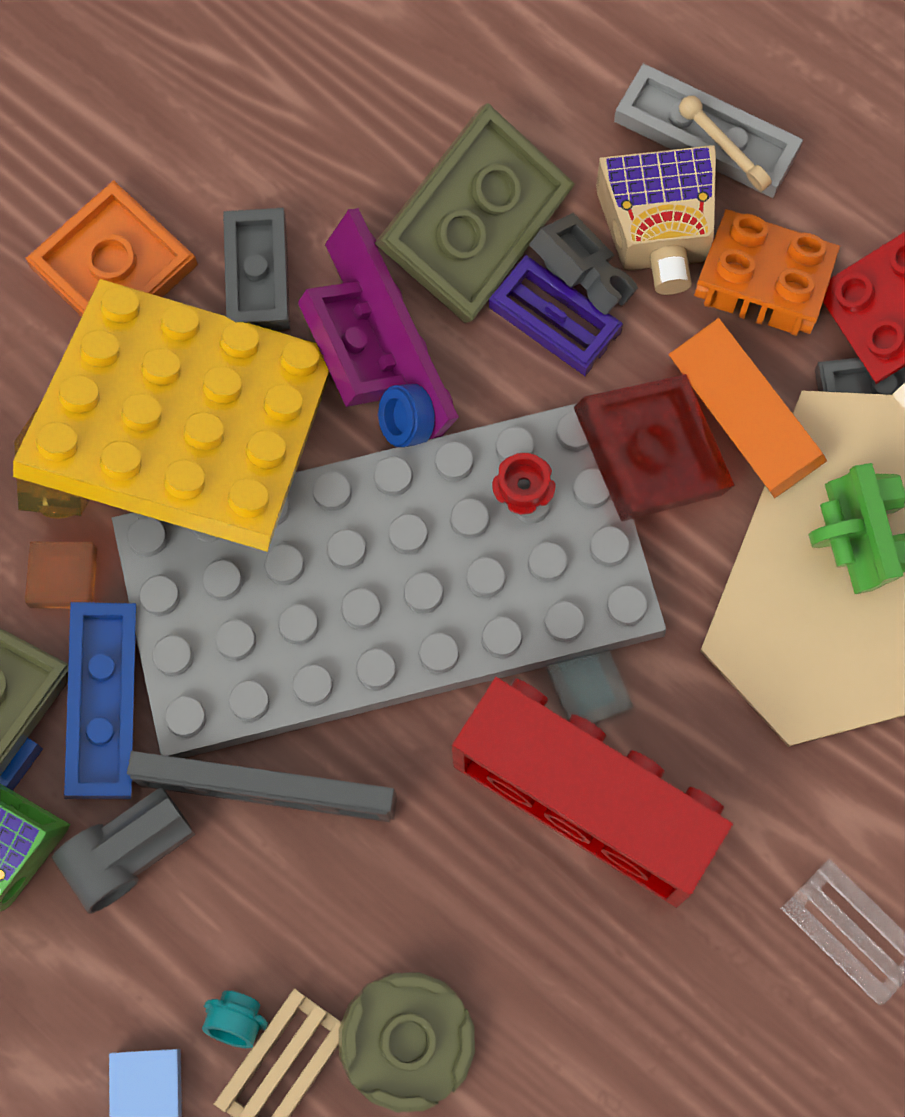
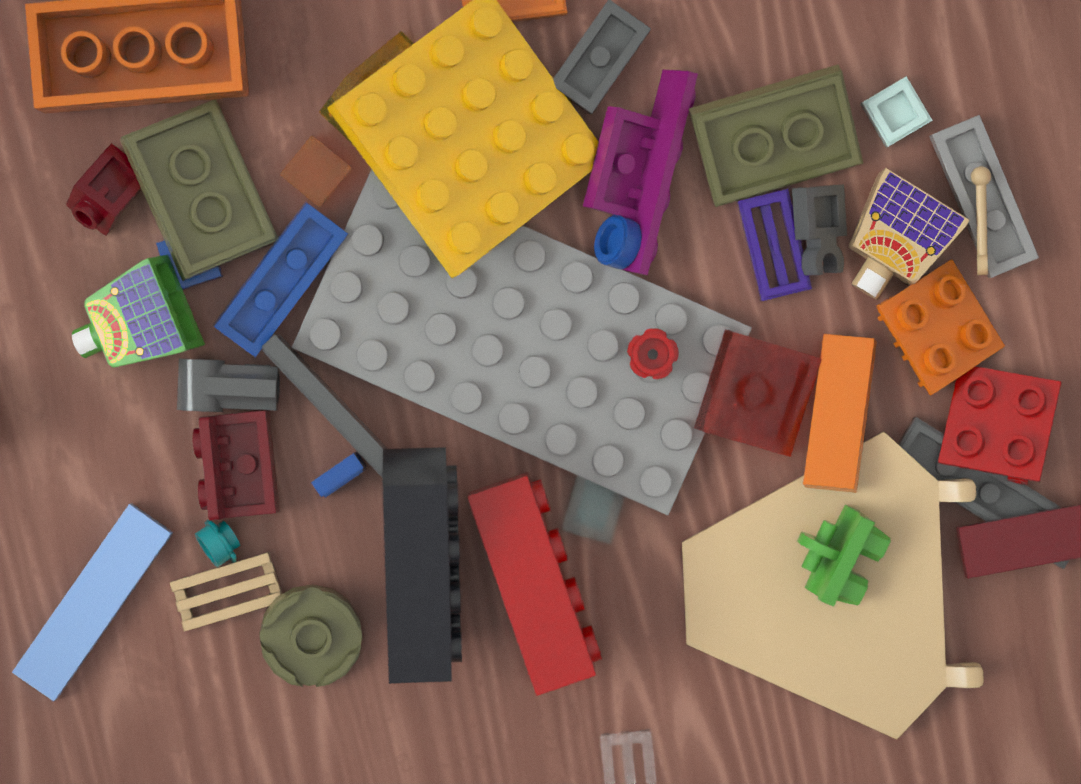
camera: 35 degrees right, 15 degrees up
(193, 921) = (236, 465): none -> dark red bracket
(307, 847) = (339, 475): none -> blue tile
(461, 863) = (421, 565): none -> black brick
(567, 124) = (896, 112): none -> light aqua tile

